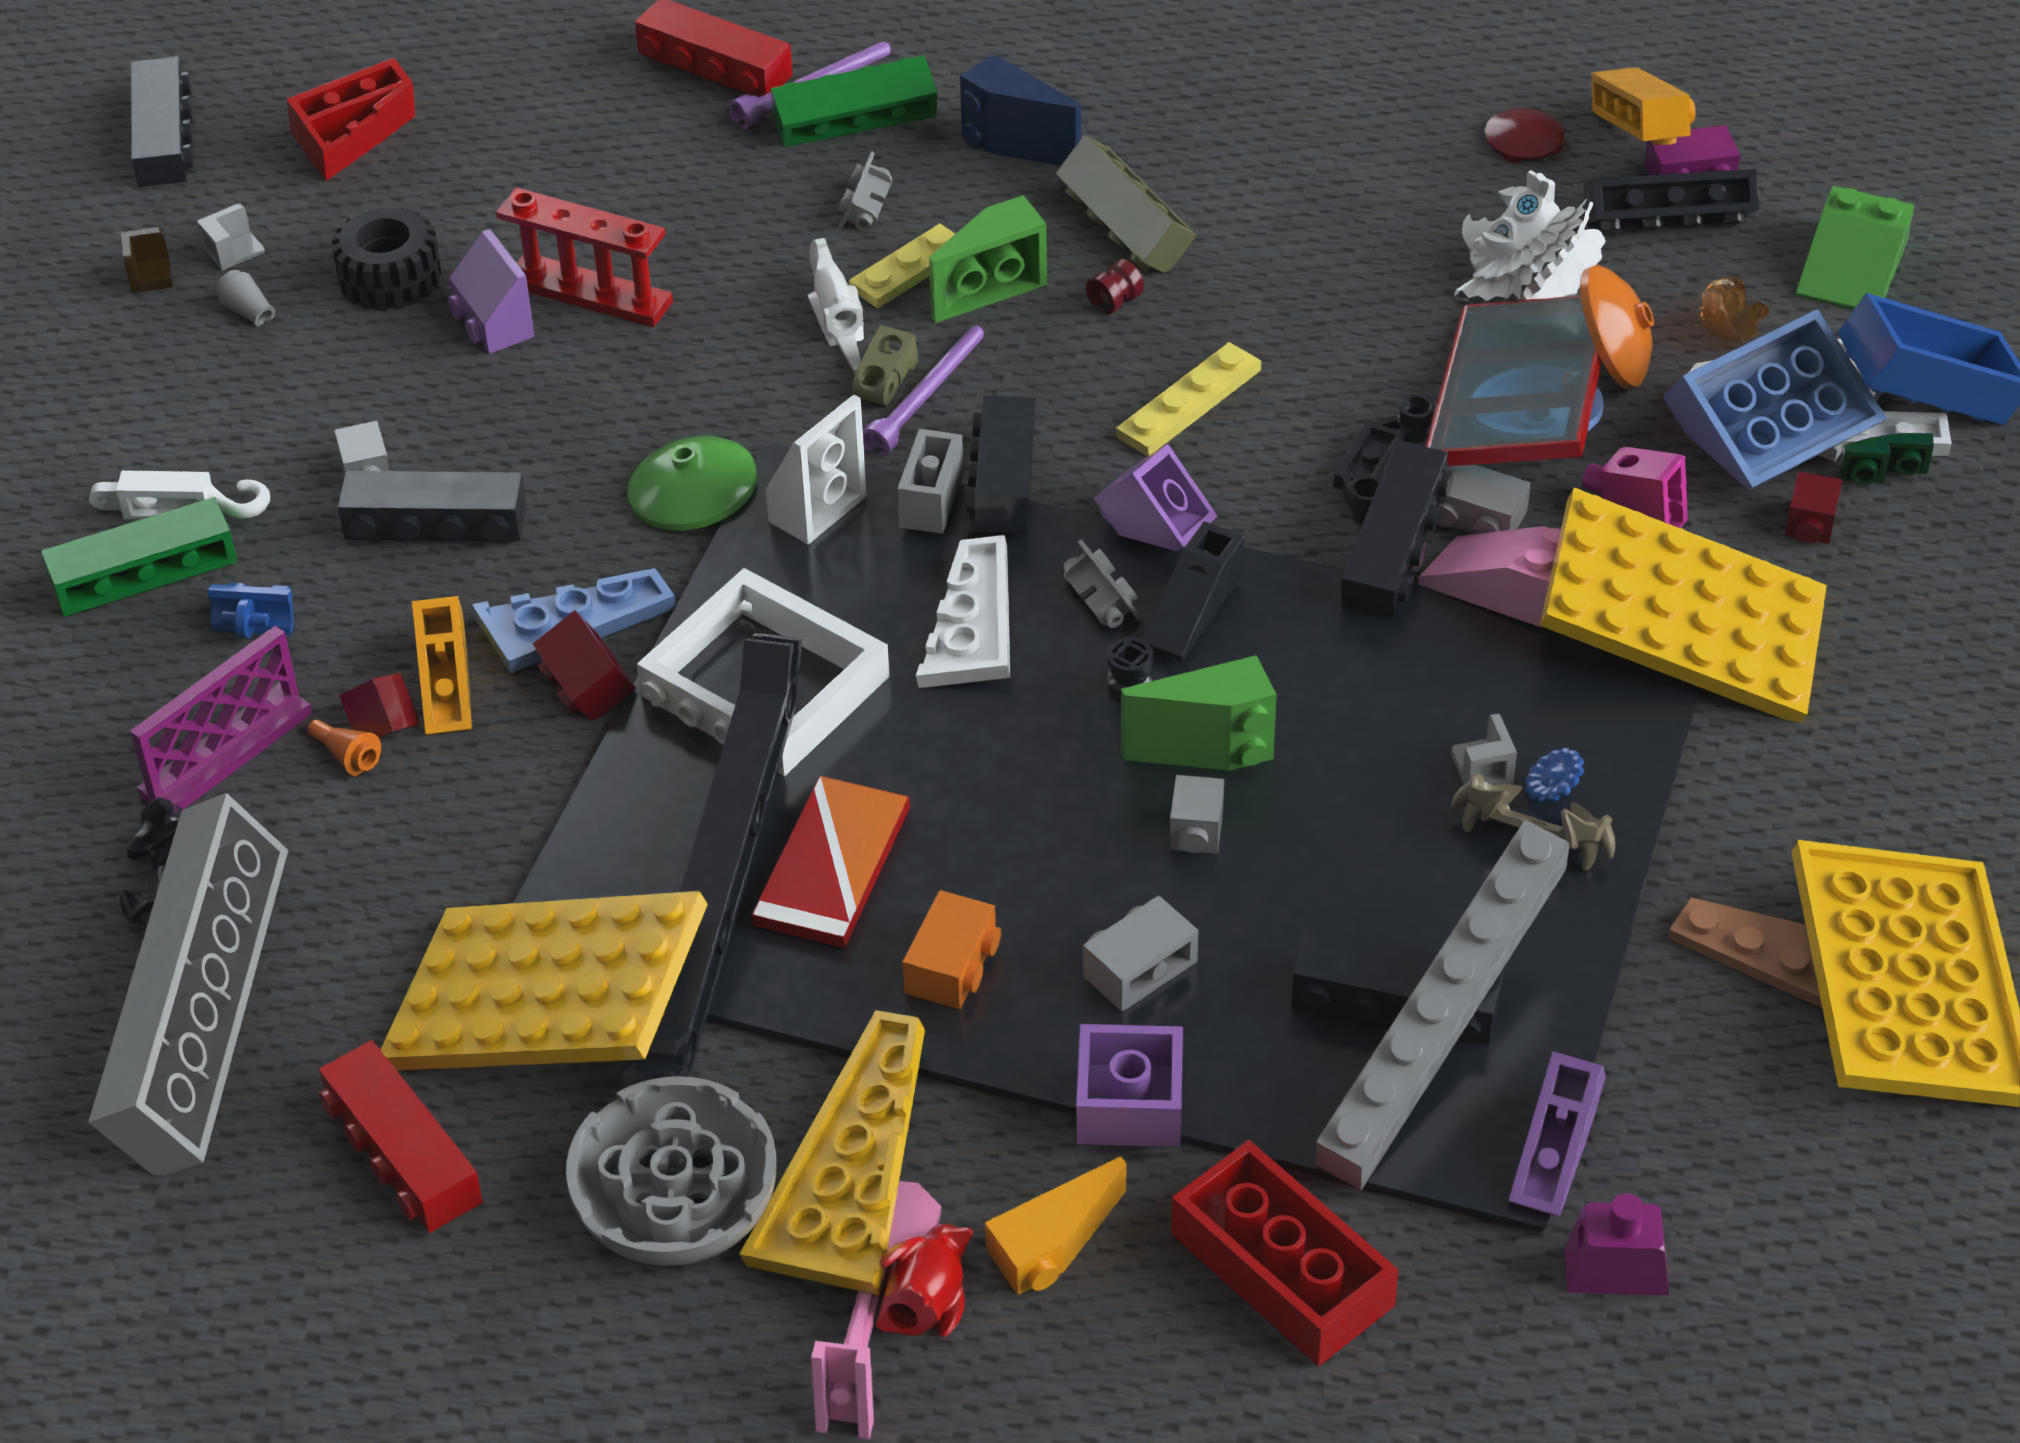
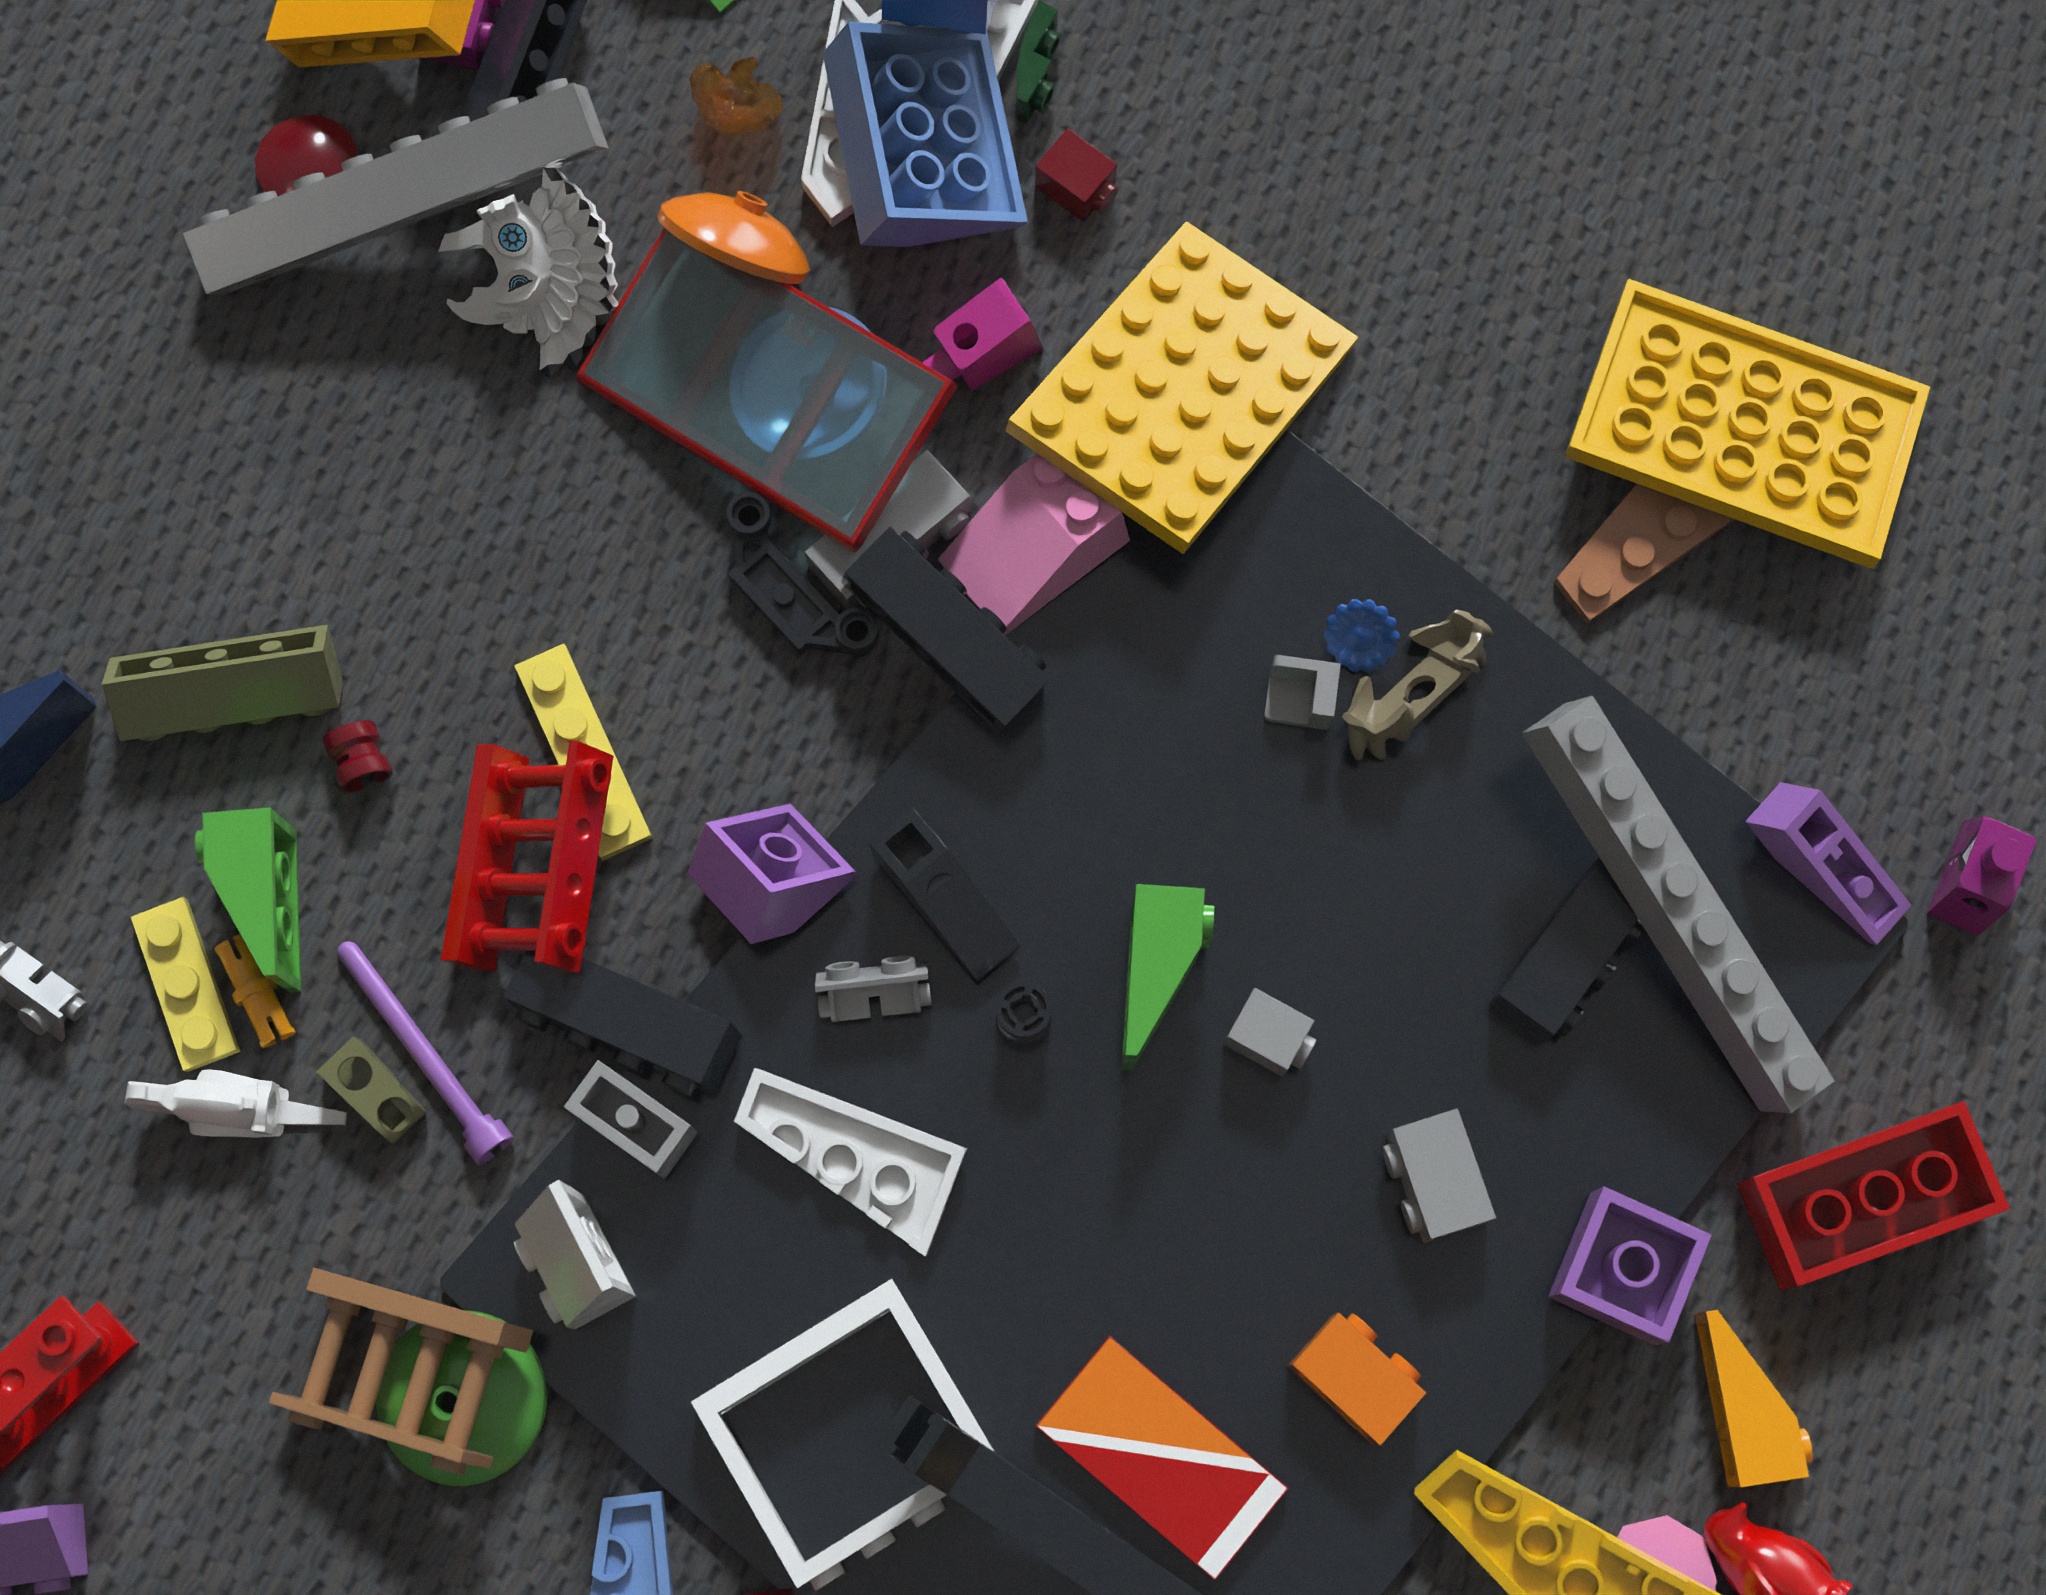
camera: 70 degrees left, 30 degrees up
(695, 426) = (438, 1327): none -> medium nougat fence
(911, 303) = (254, 992): none -> light orange pin
(1092, 375) = (487, 855): none -> red fence
(1515, 144) = (395, 189): none -> light grey brick

